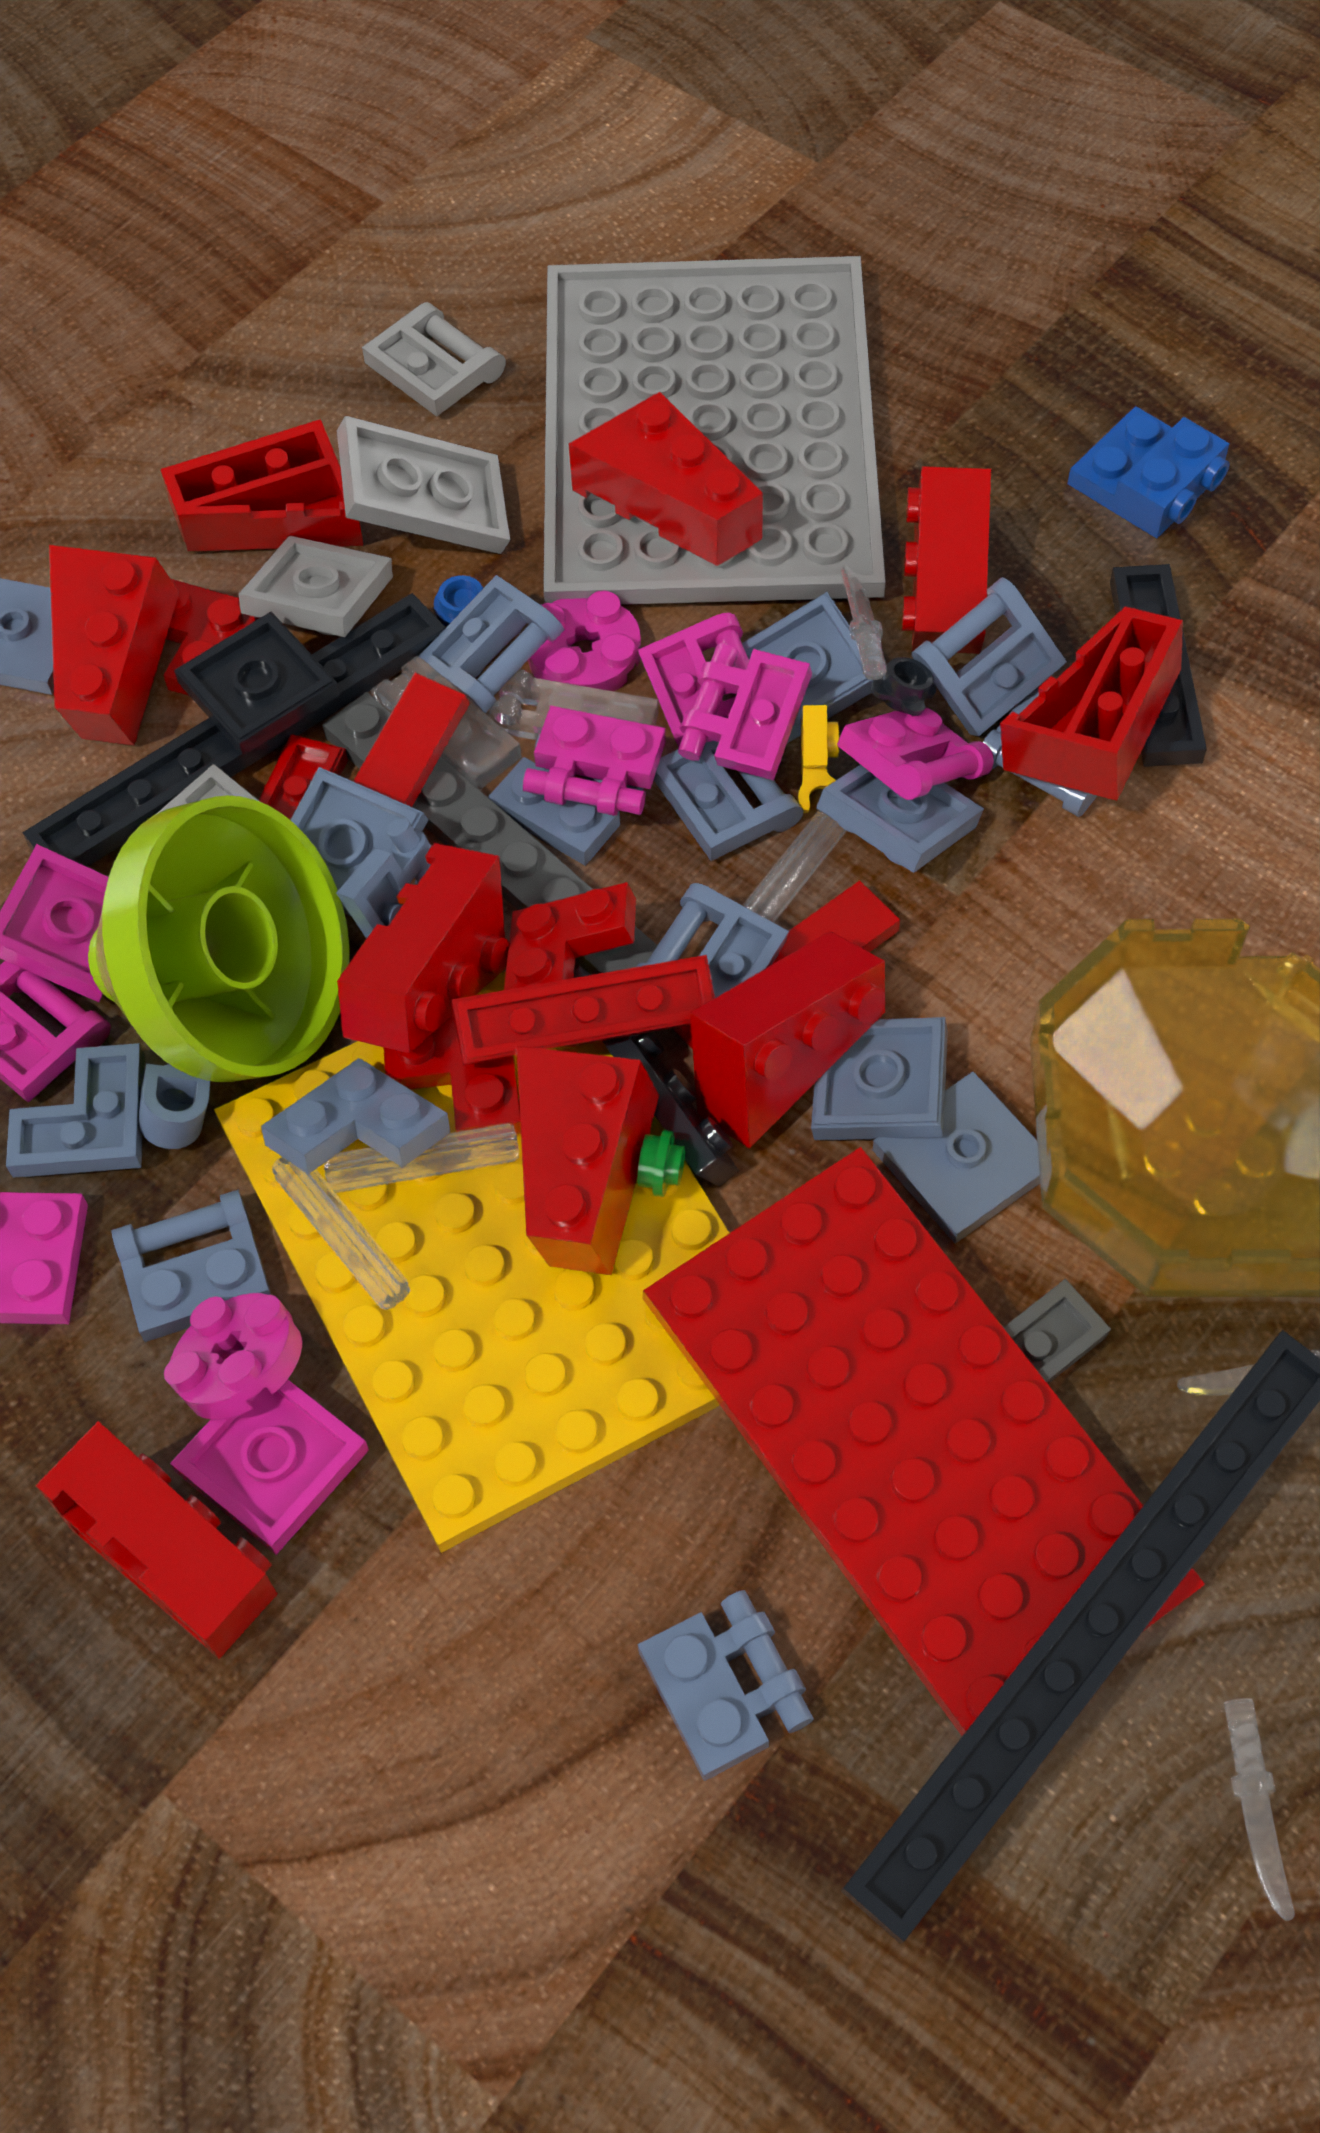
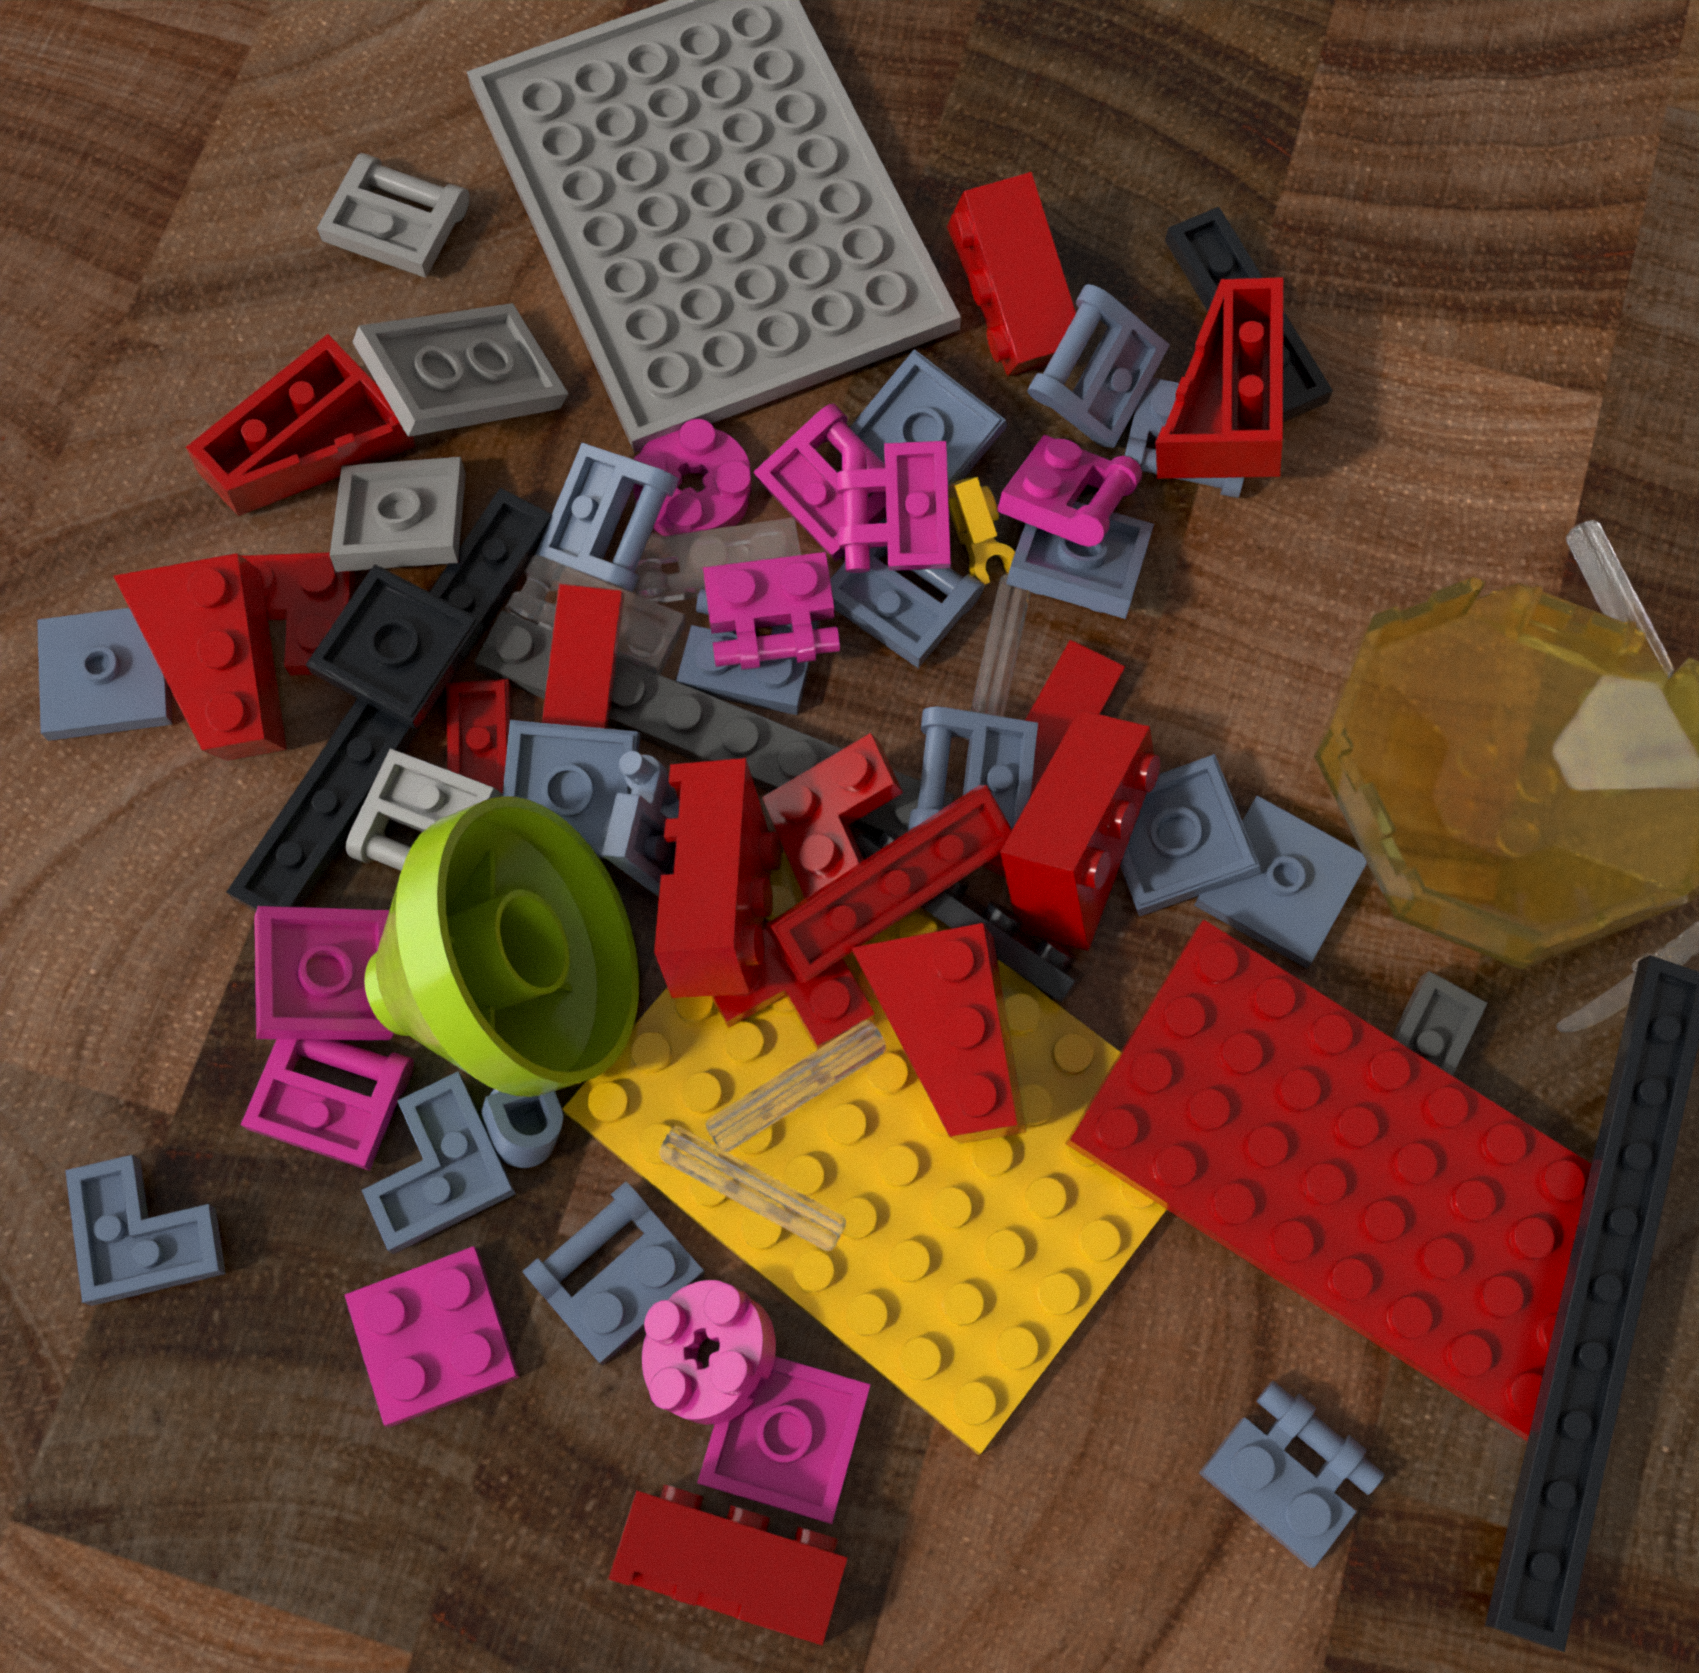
camera: 25 degrees left, 10 degrees up
(355, 1106) = (717, 1059): sand blue plate -> none
(454, 597) = (545, 477): blue plate -> none
(660, 1162) = (1027, 1006): green plate -> none
(670, 476) = (712, 279): red wedge -> none
(864, 627) = (968, 377): clear piece -> none
(905, 685) = (1033, 425): black plate -> none
(1151, 470) = (1155, 107): blue plate -> none

